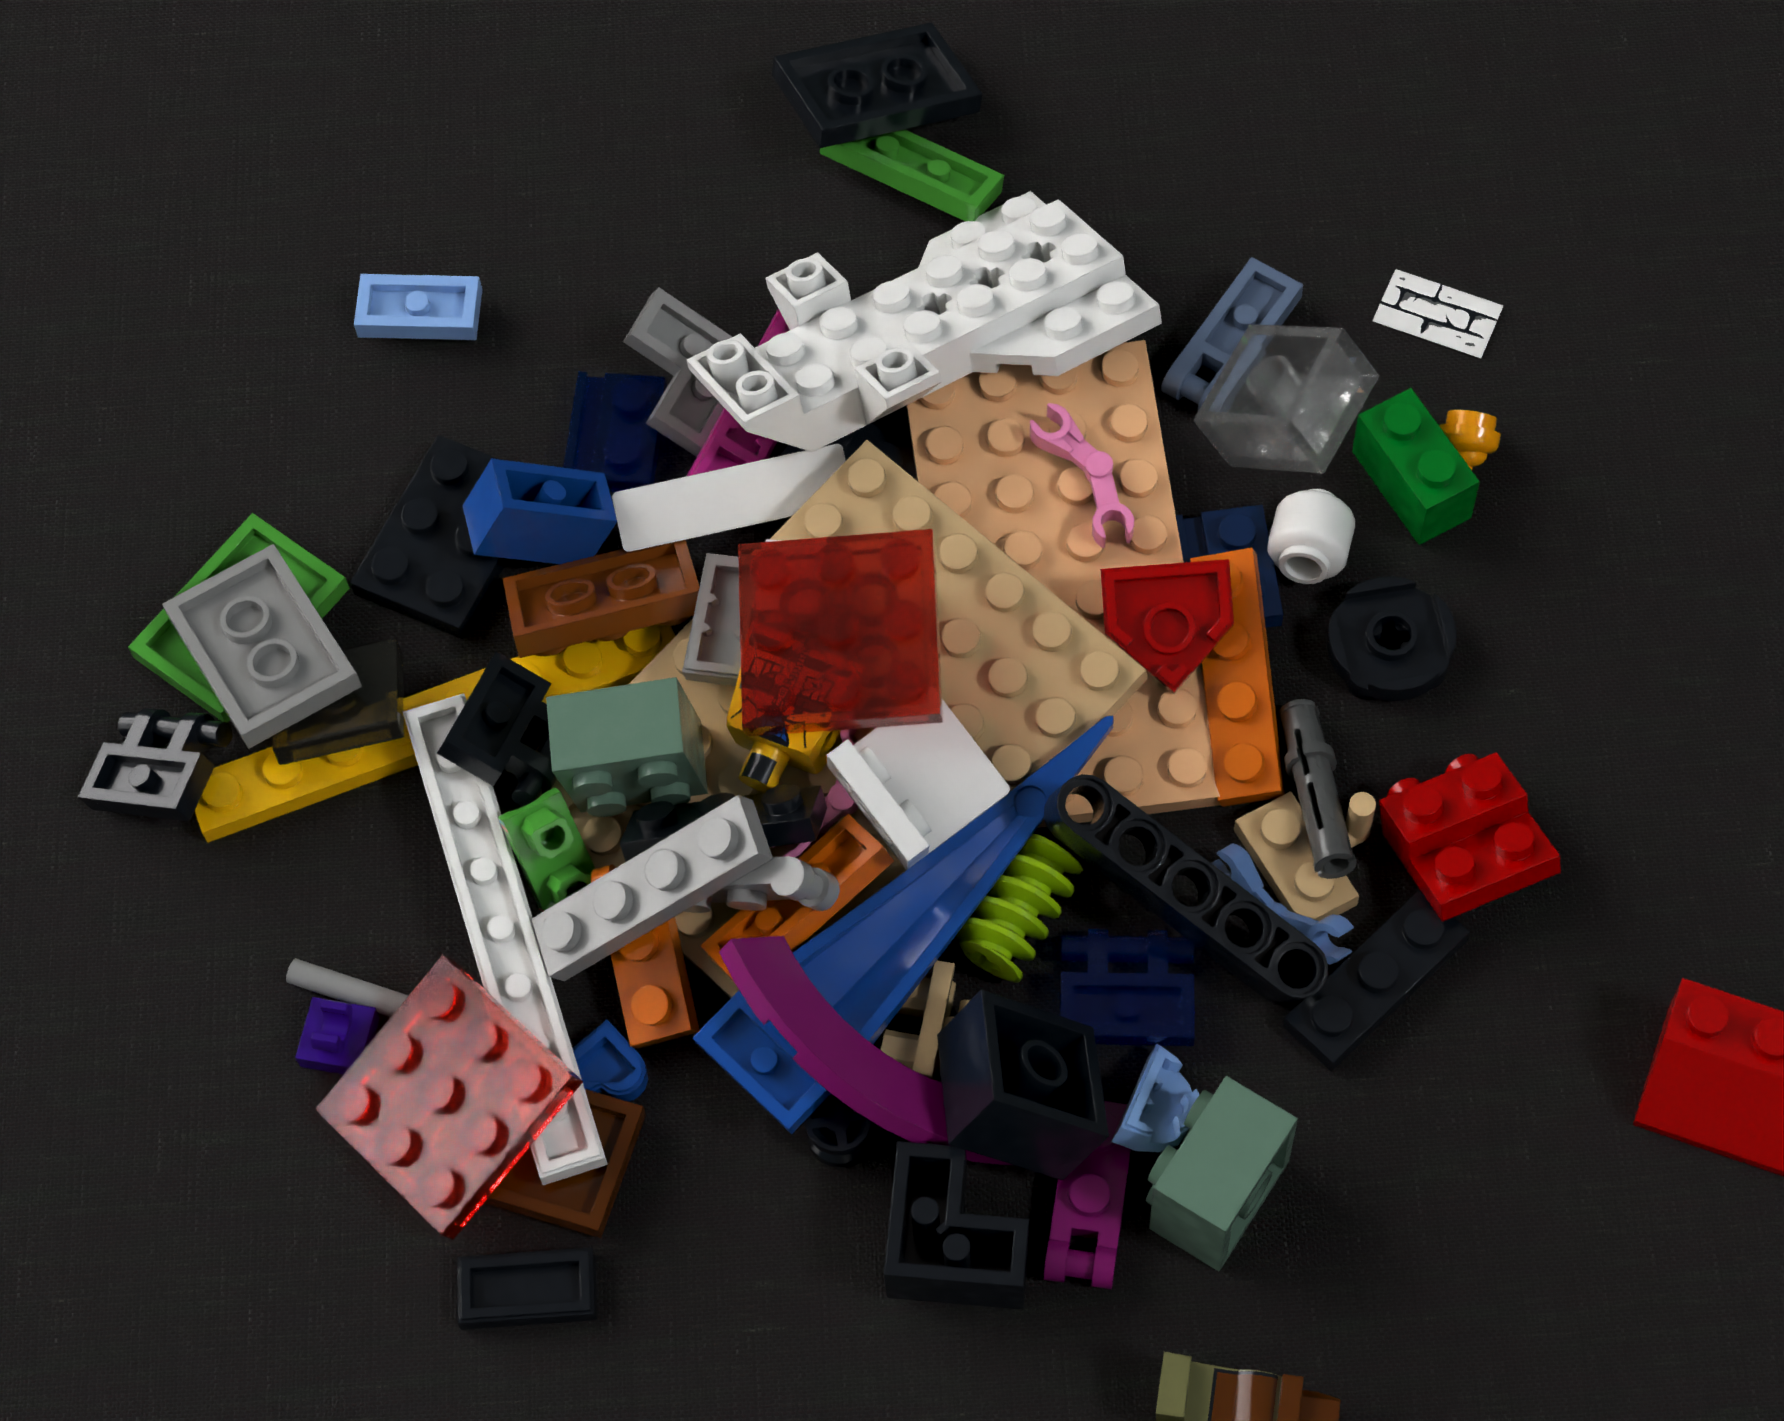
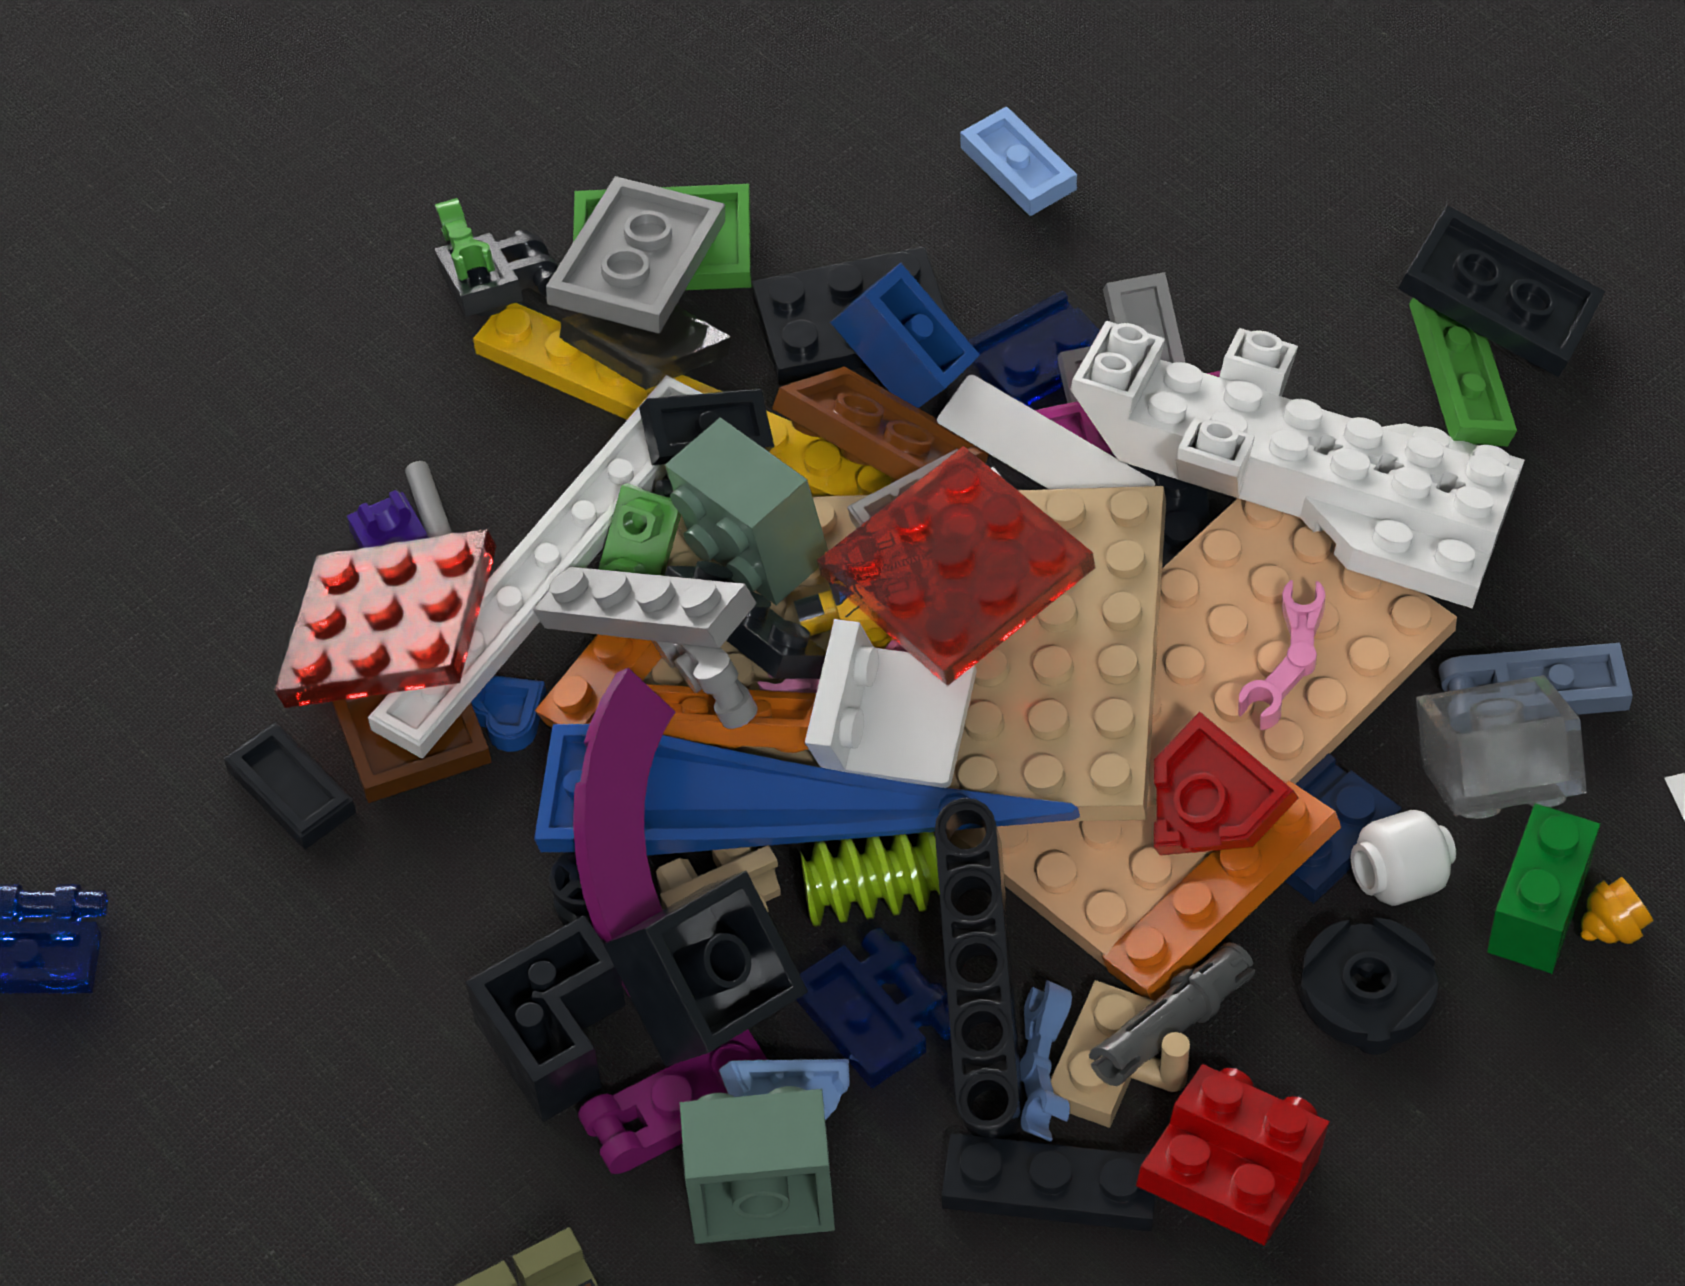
camera: 50 degrees right, 10 degrees down
(125, 770) = (466, 250): none -> bright green piece

